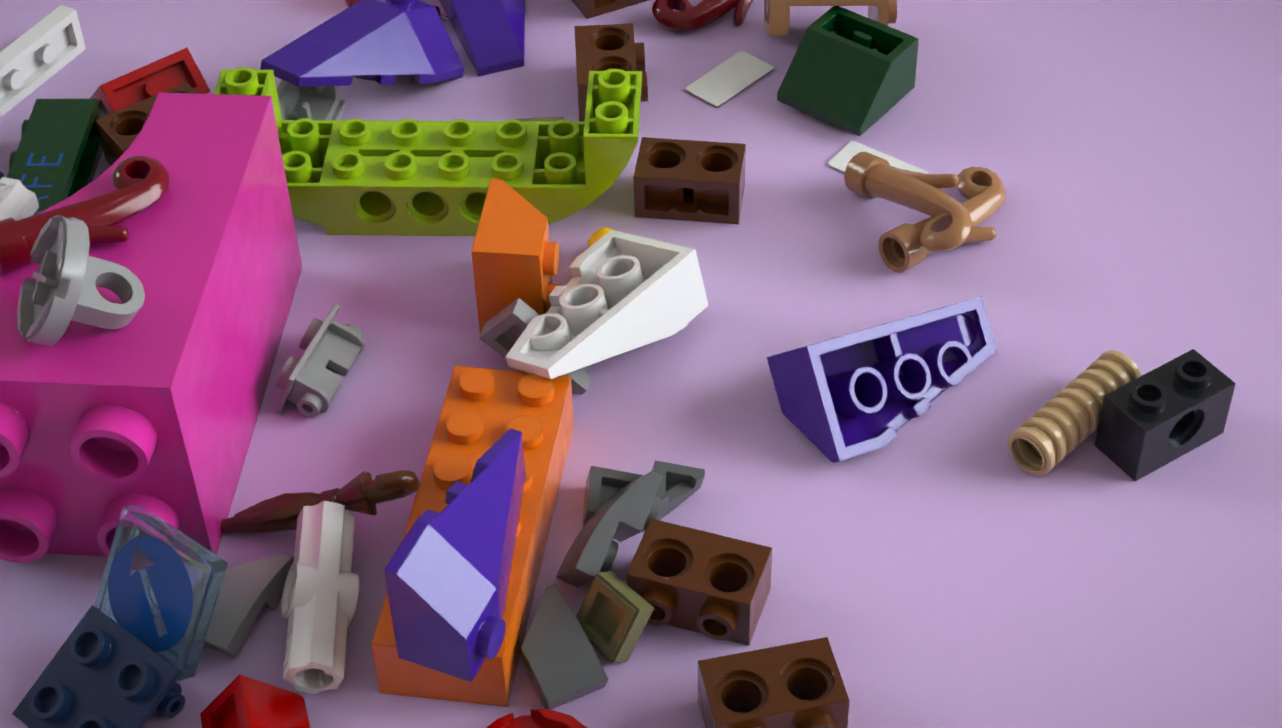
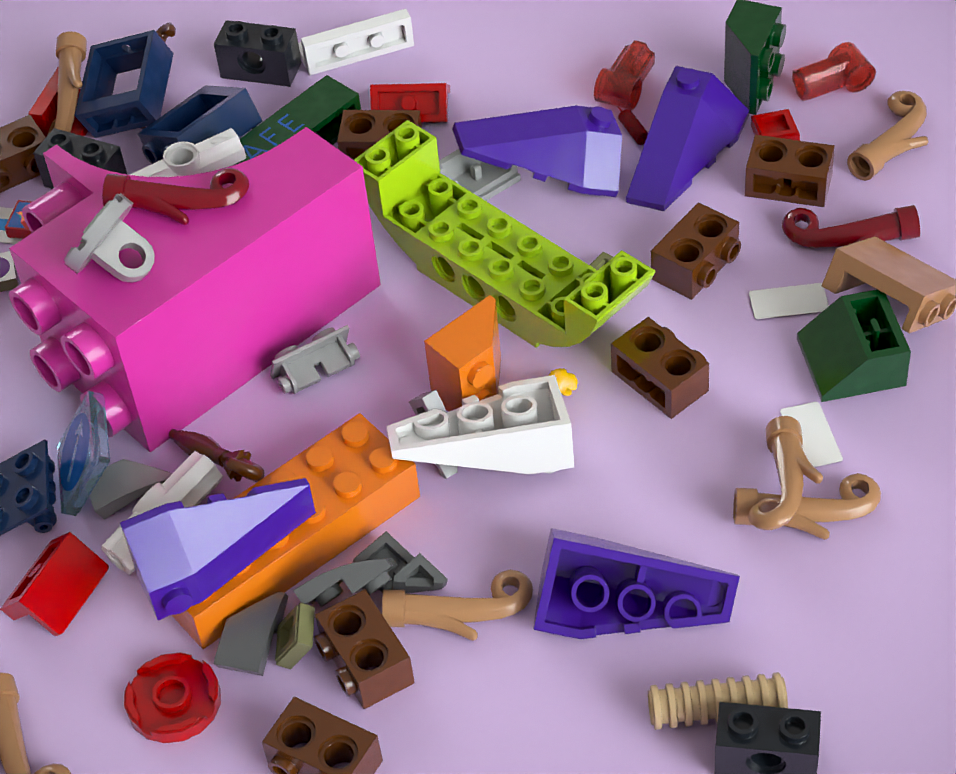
camera: 45 degrees right, 5 degrees up
(743, 496) = (453, 612): none -> medium nougat plant

